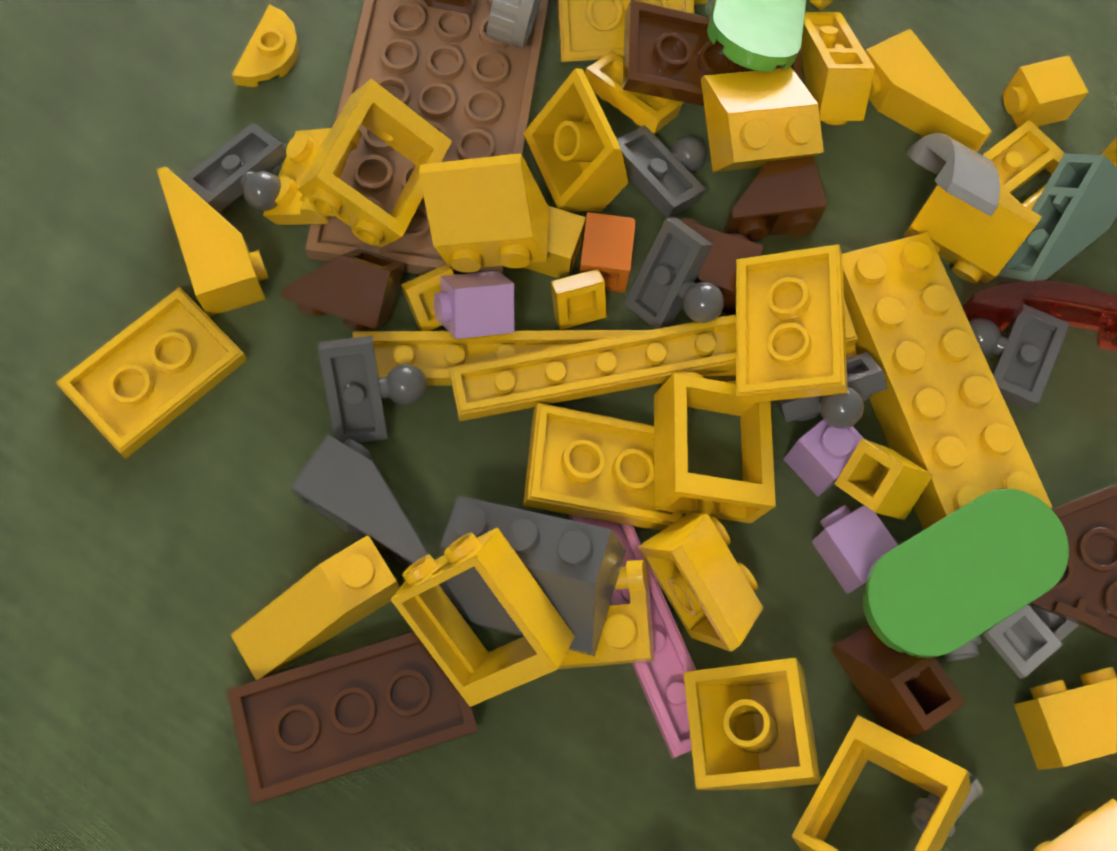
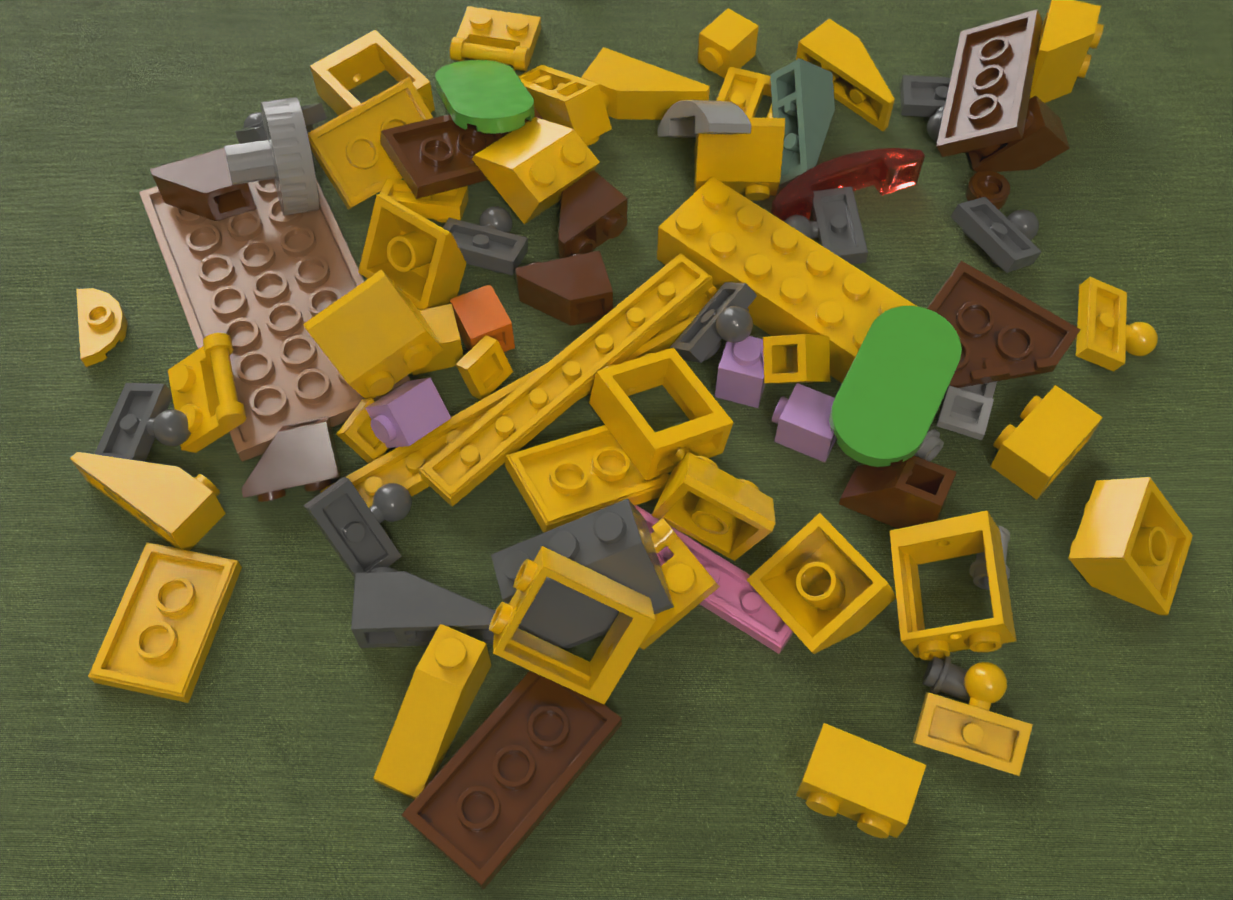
camera: 25 degrees left, 10 degrees down
(401, 130) = (264, 316): yellow window -> none
(669, 279) = (545, 312): dark grey plate -> none
(790, 325) = (659, 290): yellow tile -> none

